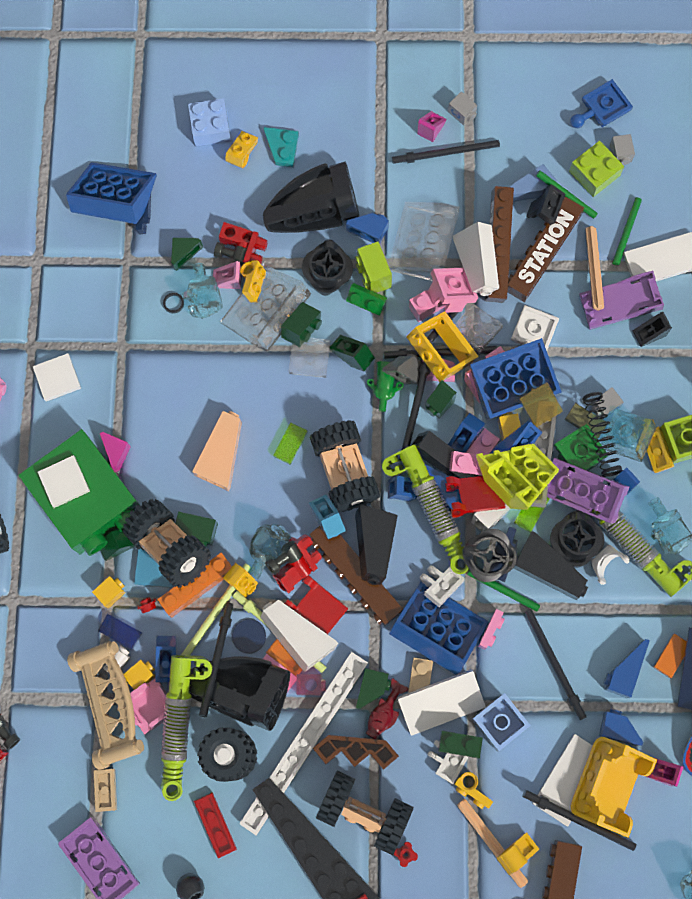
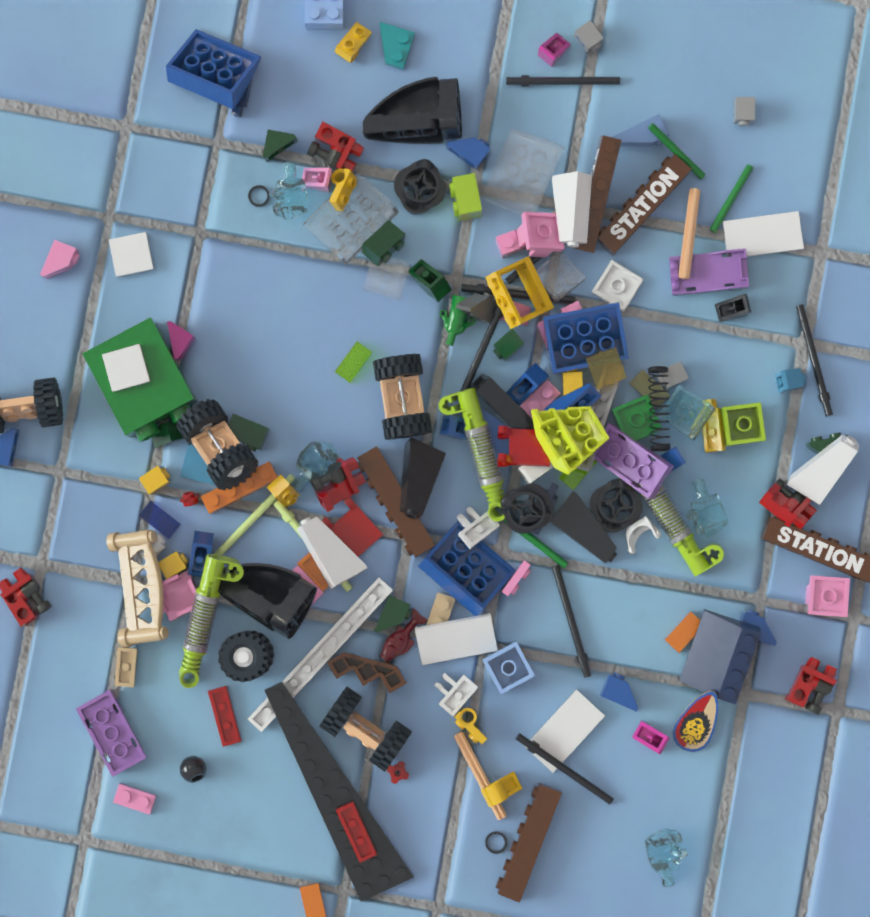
camera: 10 degrees right, 10 degrees up
(220, 452) = (282, 360): light nougat slope -> none
(225, 623) = (262, 530): black bar -> none
(249, 636) = (283, 545): dark blue piece -> none
(302, 680) = (326, 602): clear pink brick -> none
(327, 516) = (376, 444): dark azure slope -> none
(366, 299) = (453, 226): green plate -> none
(460, 744) = (465, 682): dark green brick -> none
(464, 463) = (519, 414): bright pink plate -> none
(547, 205) = (654, 160): black piece -> none
(596, 168) = (713, 127): lime brick -> none
(604, 103) = (737, 58): blue plate -> none
(609, 783) = (598, 742): yellow windscreen -> none
(625, 674) = (634, 643): blue slope -> none

